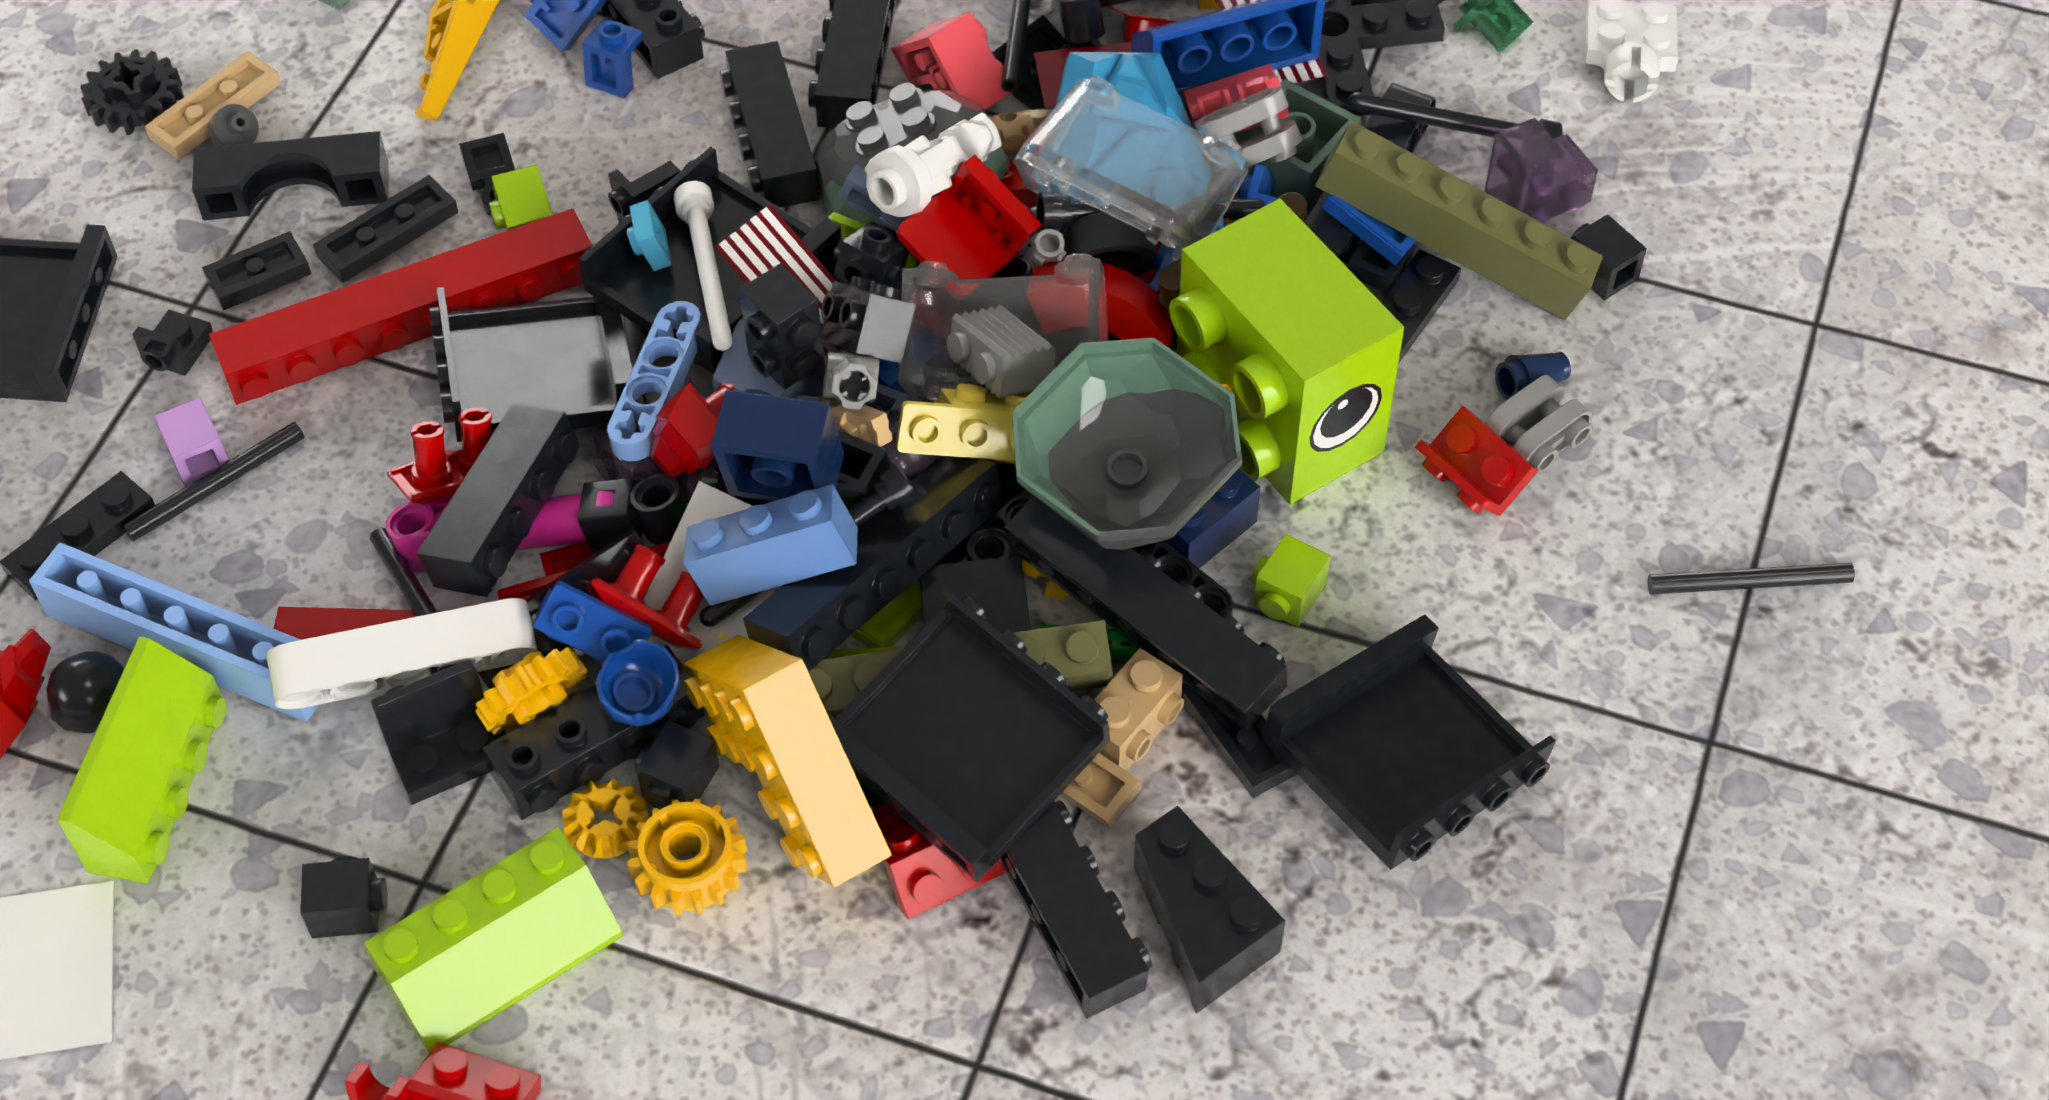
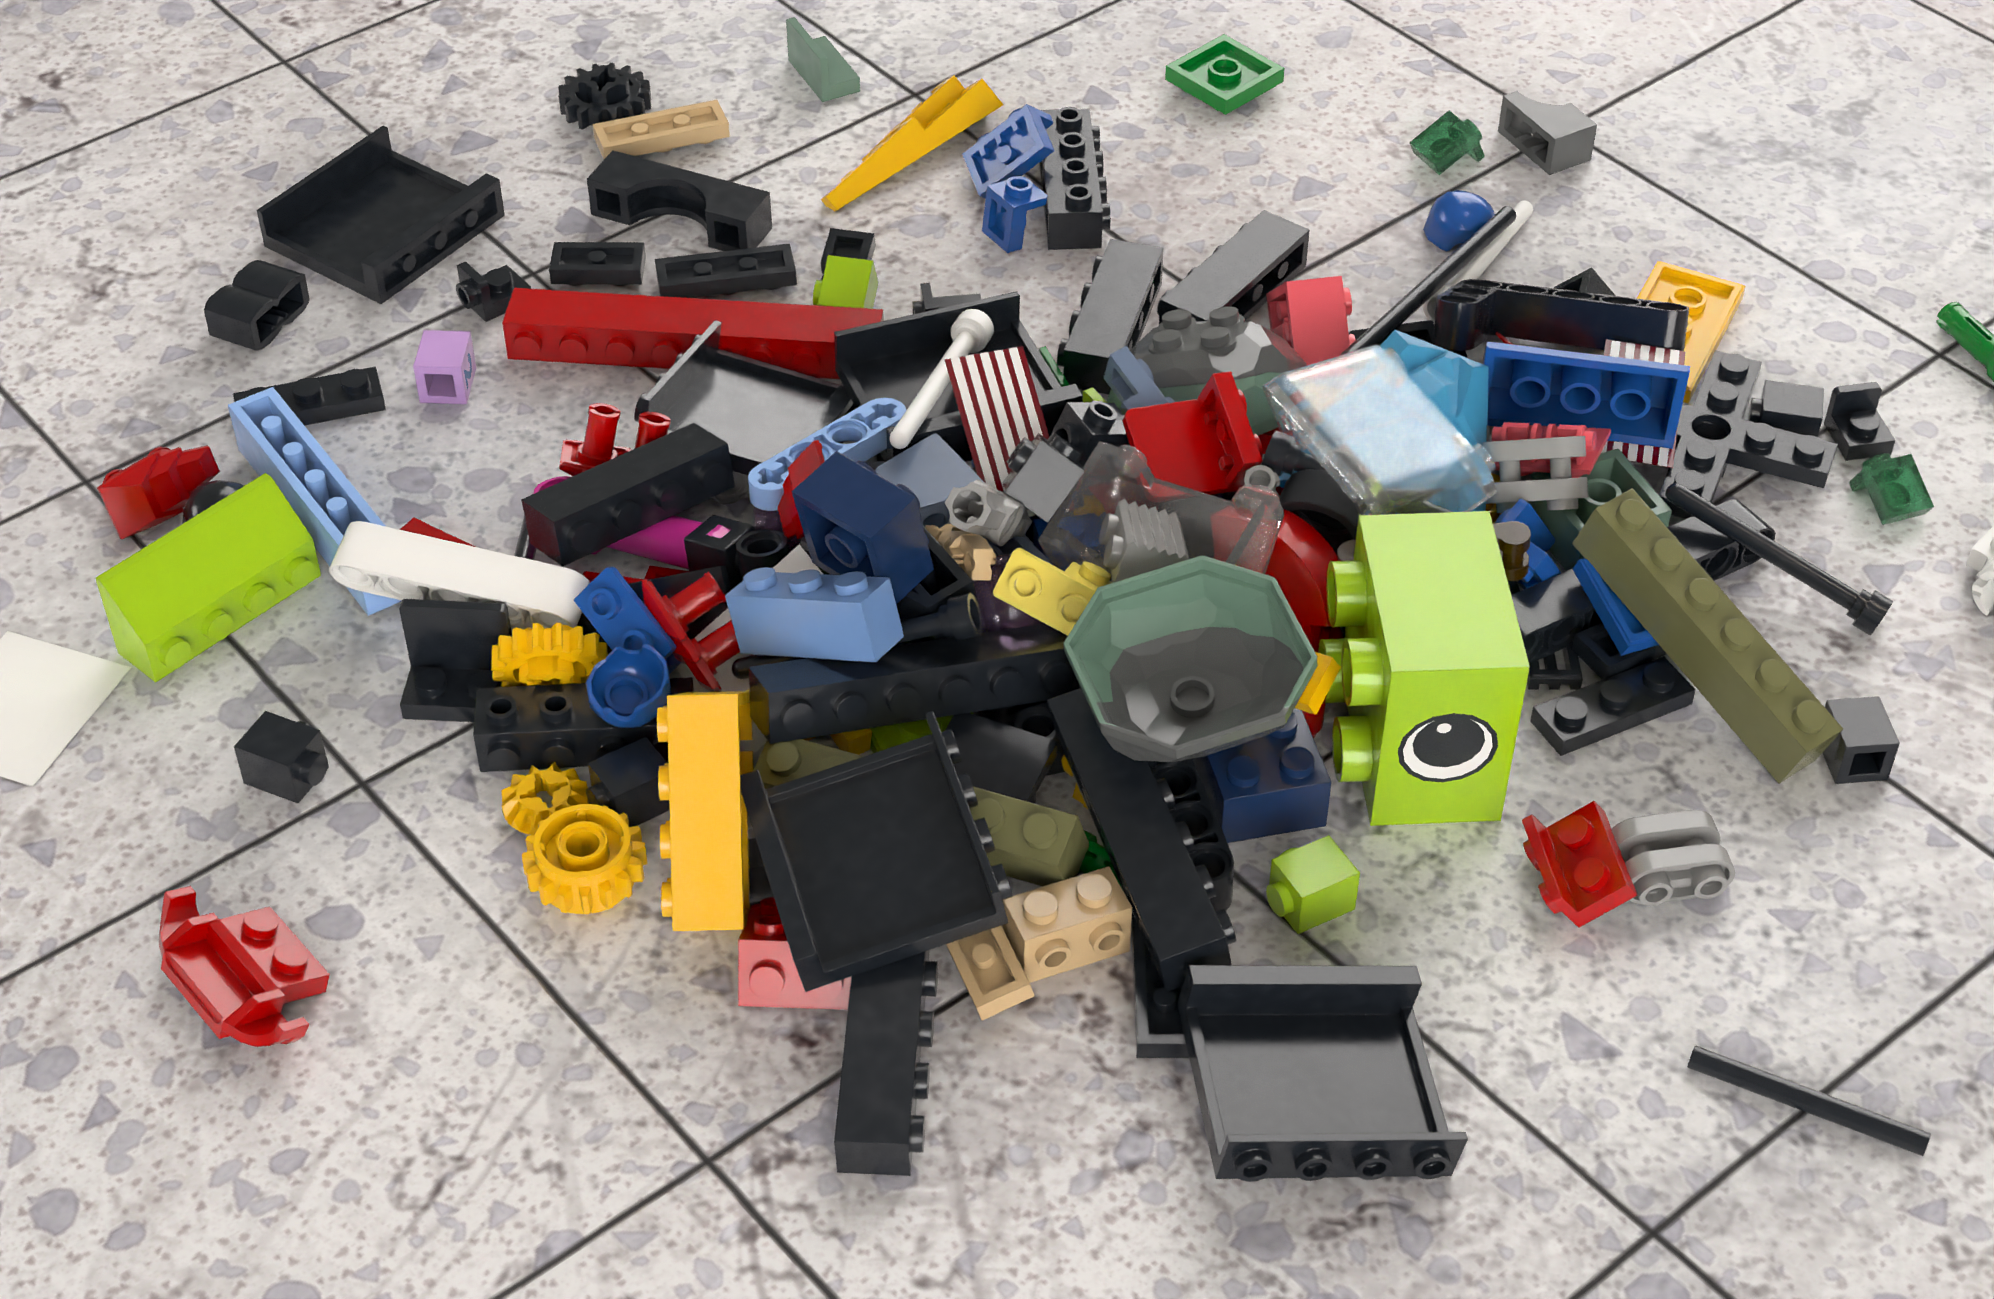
camera: 30 degrees right, 10 degrees down
(213, 481) = (442, 405): black bar -> none
(233, 126) = (658, 139): dark grey tile -> none
(493, 939) = (374, 846): slope -> none
(649, 236) = (910, 339): medium azure plate -> none
(782, 327) = (948, 437): black brick -> none
(906, 177) = (1175, 368): white animal -> none
(1205, 906) = (1007, 1128): black wedge -> none
(1523, 369) = (1726, 812): dark blue cone -> none
(1539, 172) = (1831, 640): clear purple brick -> none

